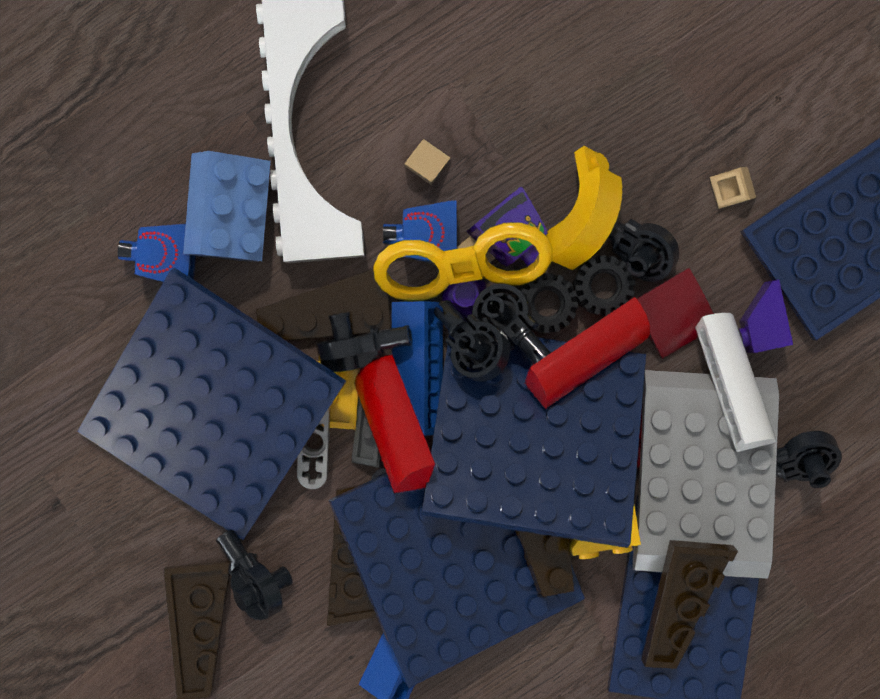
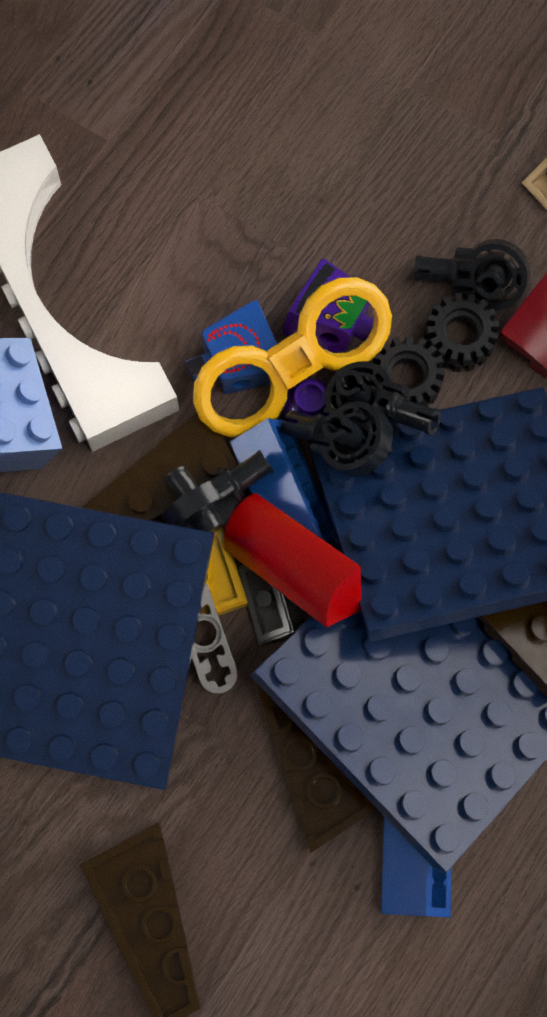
camera: 25 degrees left, 15 degrees down
(253, 585) = (197, 846): black pin -> none
(427, 161) = (206, 283): tan slope -> none
(588, 353) = (477, 399): red brick -> none
(593, 214) = (413, 260): yellow arch -> none

